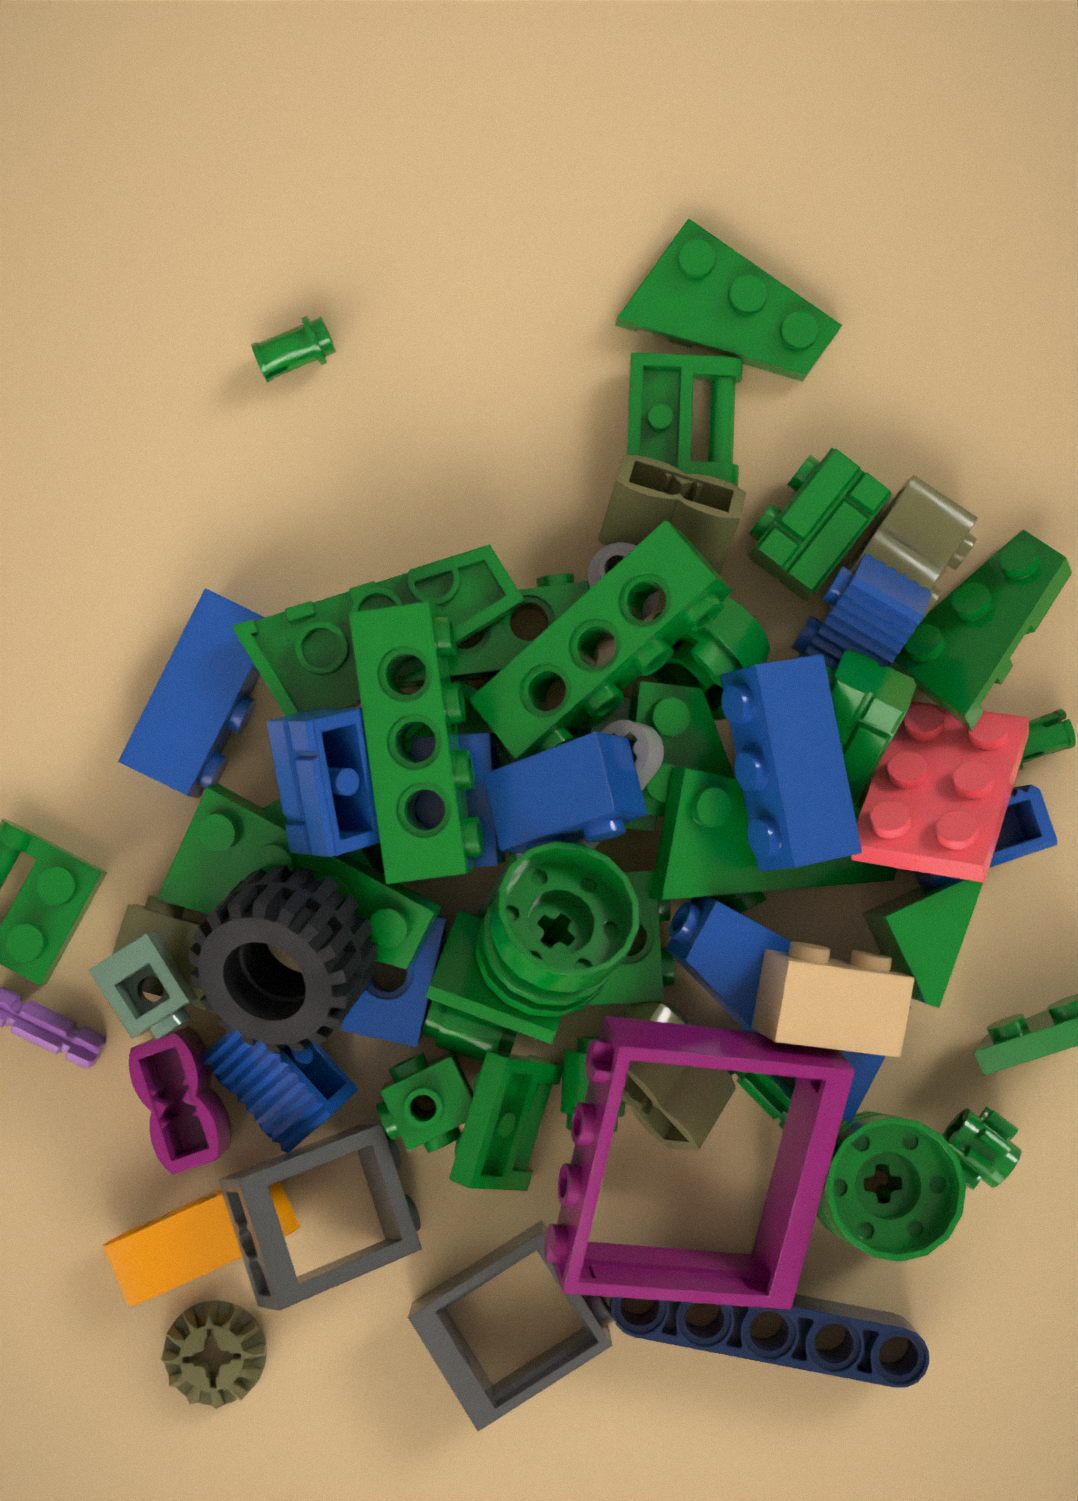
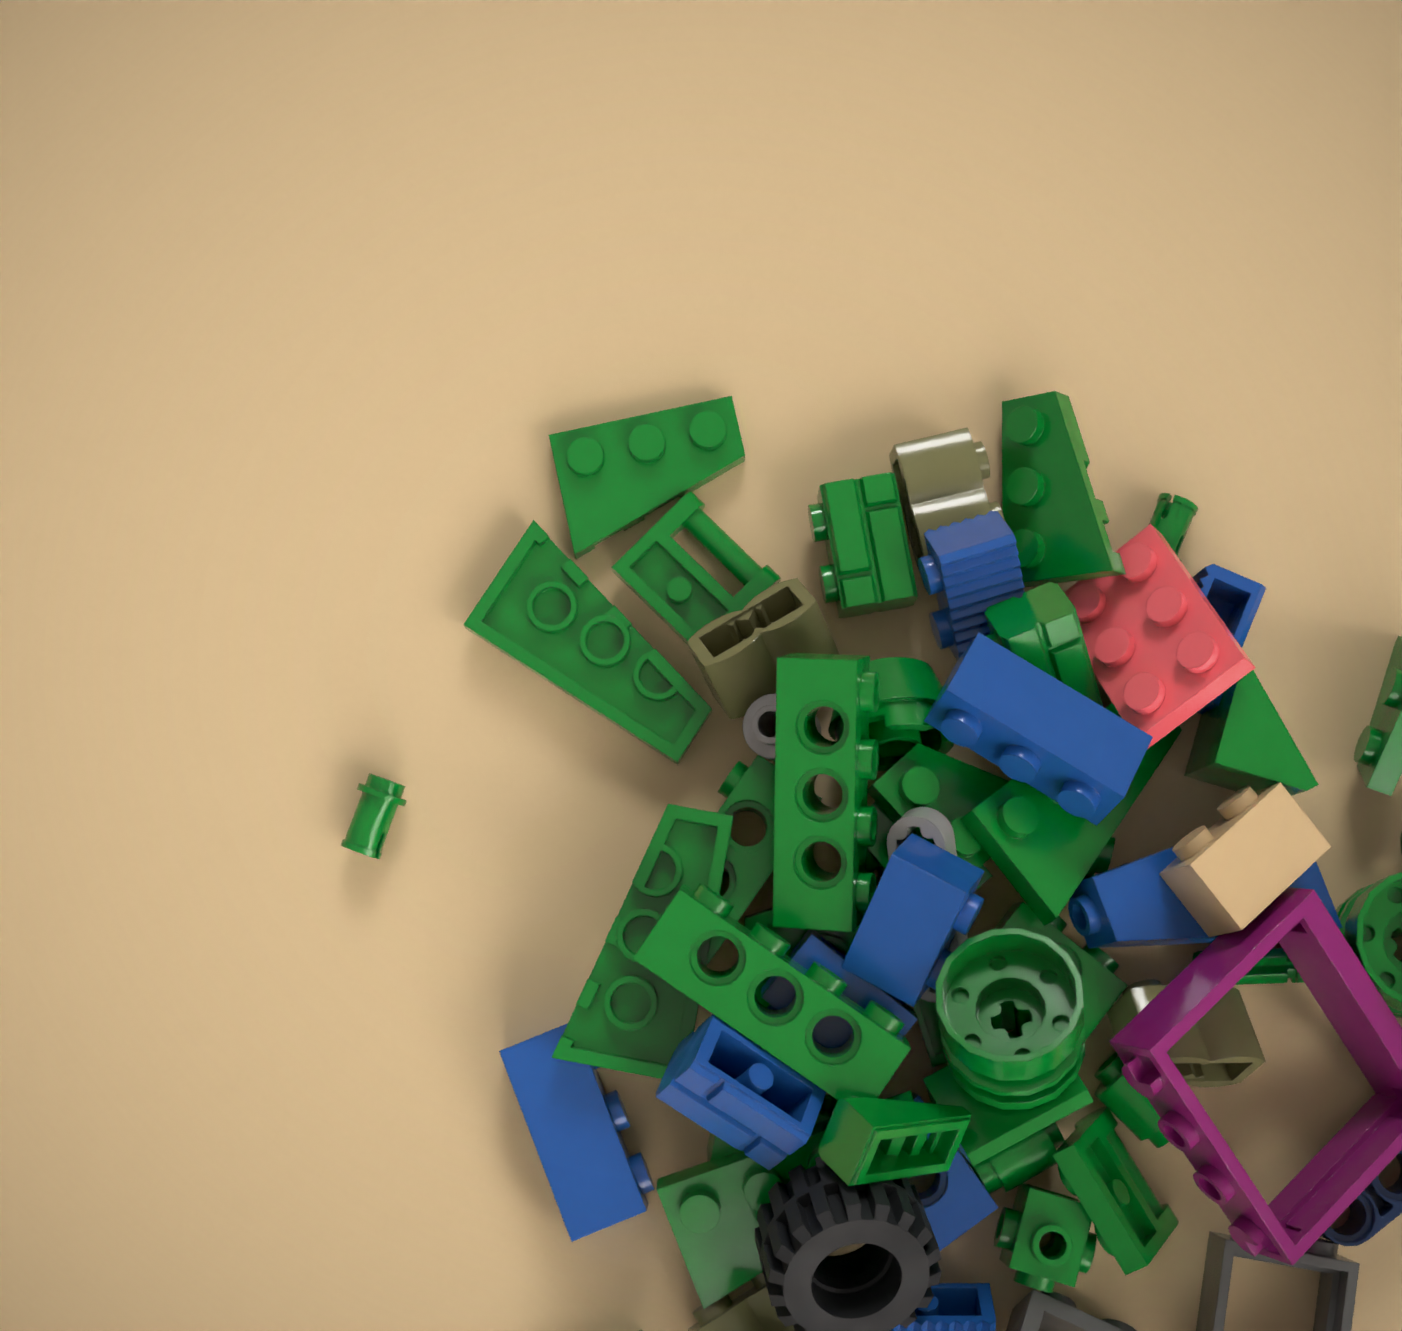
camera: 45 degrees left, 5 degrees down
(377, 885) = (885, 1138): none -> green slope
(554, 373) = (573, 637): none -> green wing

